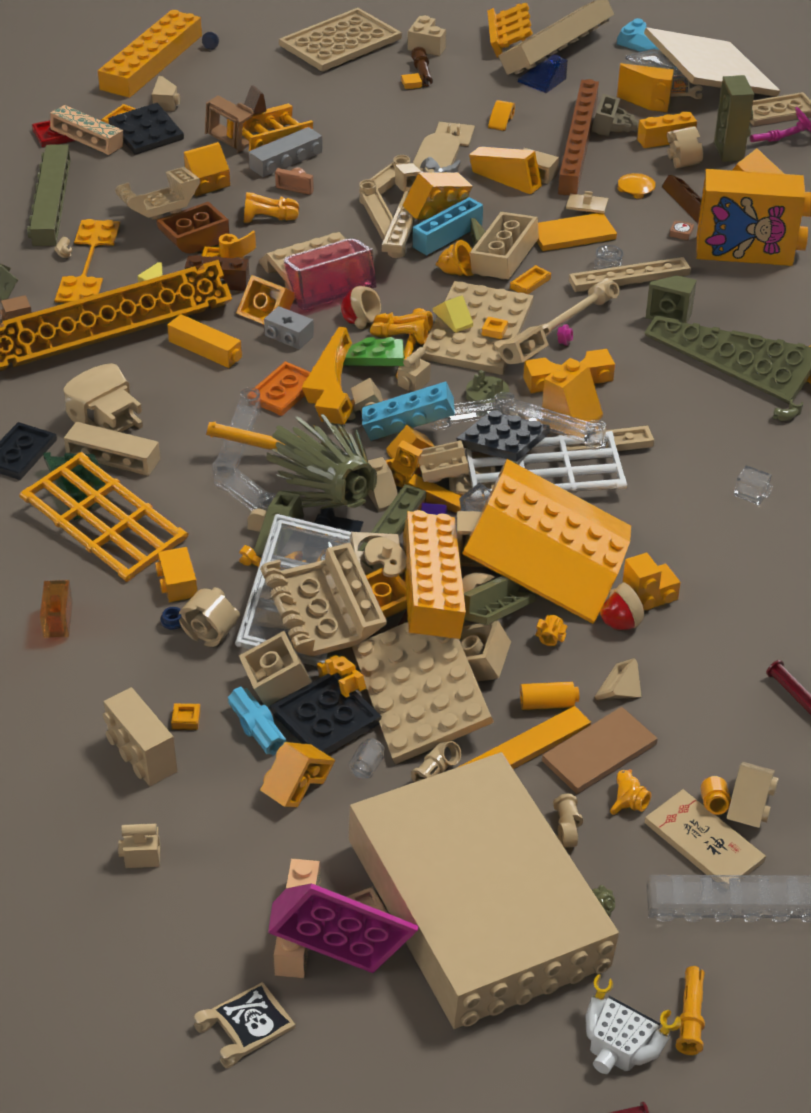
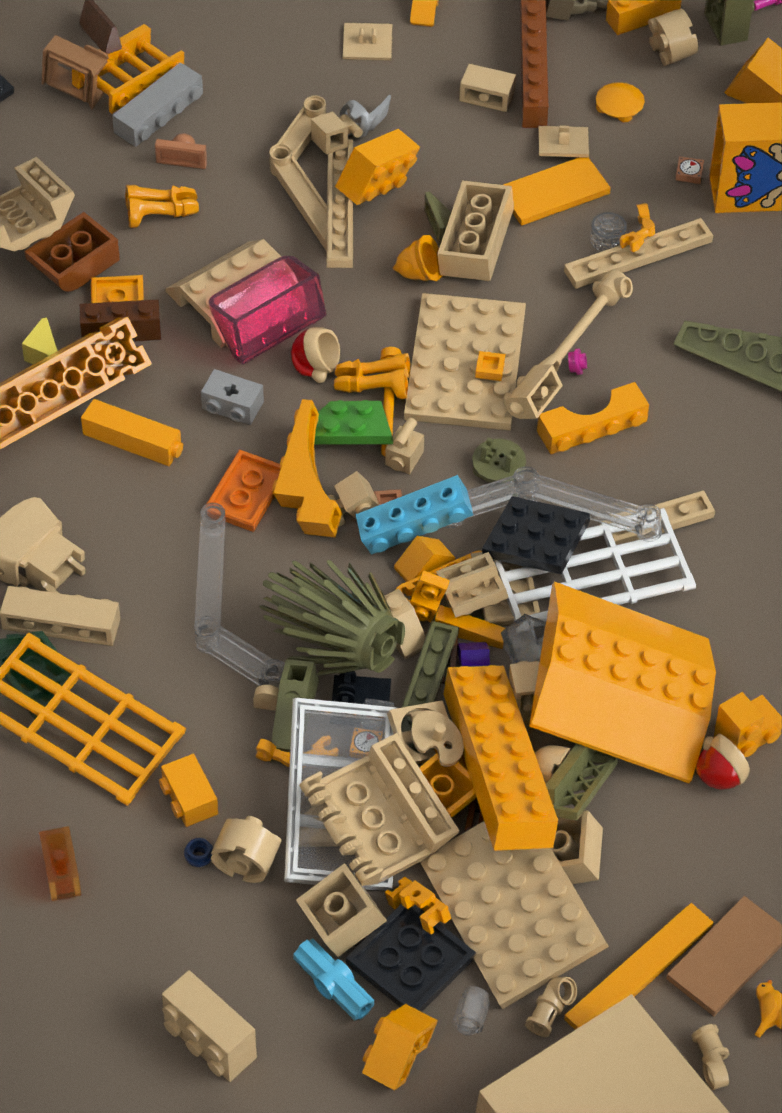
camera: 10 degrees left, 10 degrees up
(186, 716) = (248, 983): light orange tile -> none
(209, 166) = (66, 150): light orange slope -> none
(233, 247) = (130, 280): light orange panel -> none
(241, 436) = (229, 580): light orange piece -> none
(262, 298) = (191, 359): light orange slope -> none
(439, 146) = (354, 77): tan tile -> none
(446, 226) = (396, 207): medium azure brick -> none
(454, 314) = (436, 351): light yellow slope -> none
(507, 166) = (452, 96): light orange slope -> none
(530, 280) = (516, 277): light orange tile -> none
(548, 695) = (659, 894): light orange brick -> none
(551, 630) = (645, 805): light orange gear -> none
(572, 392) = (608, 462): light orange slope -> none
(621, 682) = (736, 861): tan slope -> none
(628, 263) = (636, 239): none -> light orange piece
(671, 298) = (700, 294): olive slope -> none
(683, 195) = (686, 115): reddish brown slope -> none

